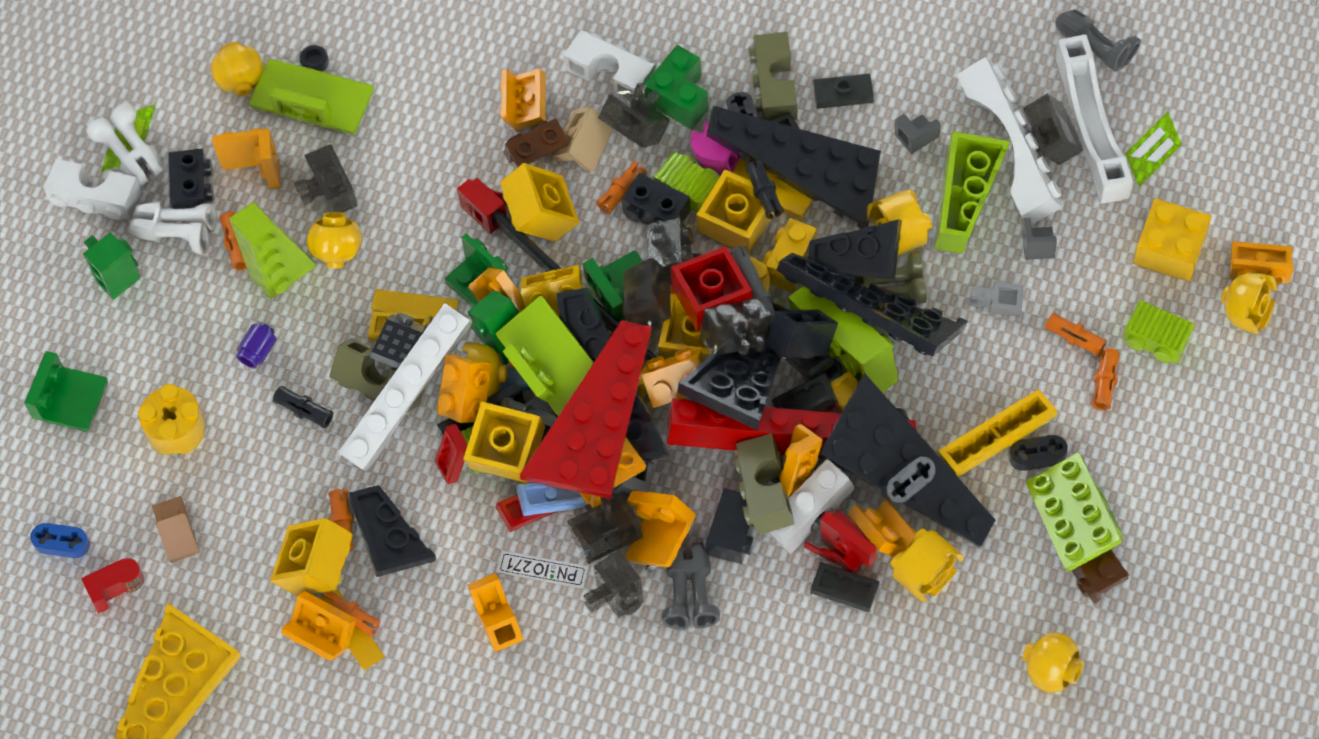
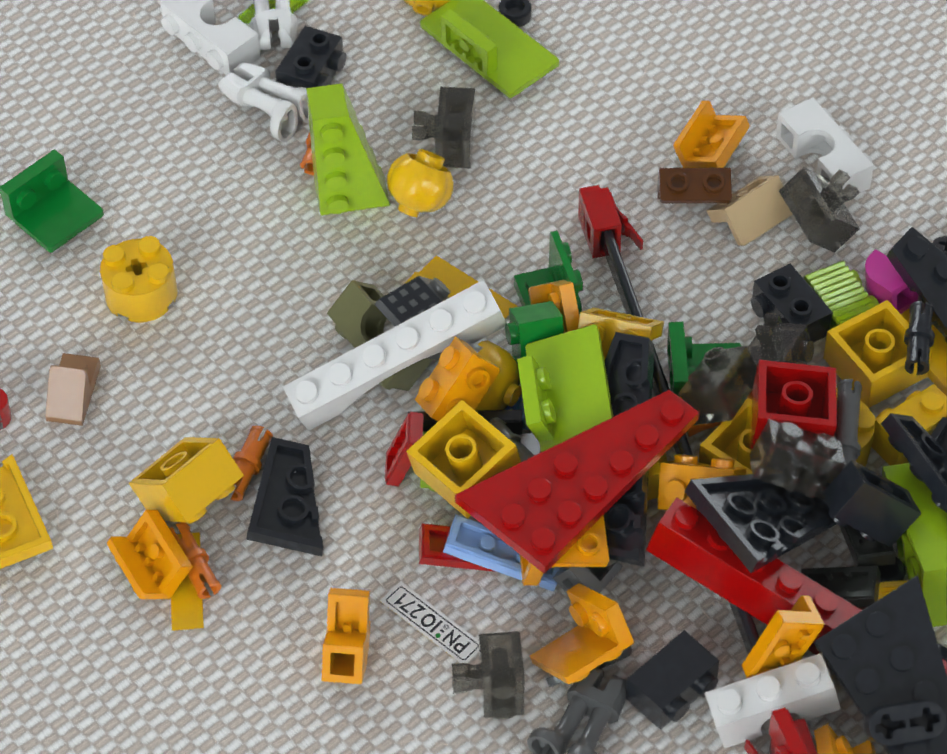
camera: 25 degrees right, 10 degrees down
(111, 264) = (178, 103): green brick -> none
(249, 150) = (389, 60): light orange bracket -> none
(256, 345) = (273, 248): dark purple brick -> none
(303, 406) = (282, 332): black pin -> none
(539, 202) = (660, 242): yellow brick -> none
(604, 528) = (526, 606): clear smoke brick -> none
(619, 187) = (744, 280): orange pin -> none
(676, 84) = (888, 201): green brick -> none
(758, 463) = (721, 661): olive arch -> none

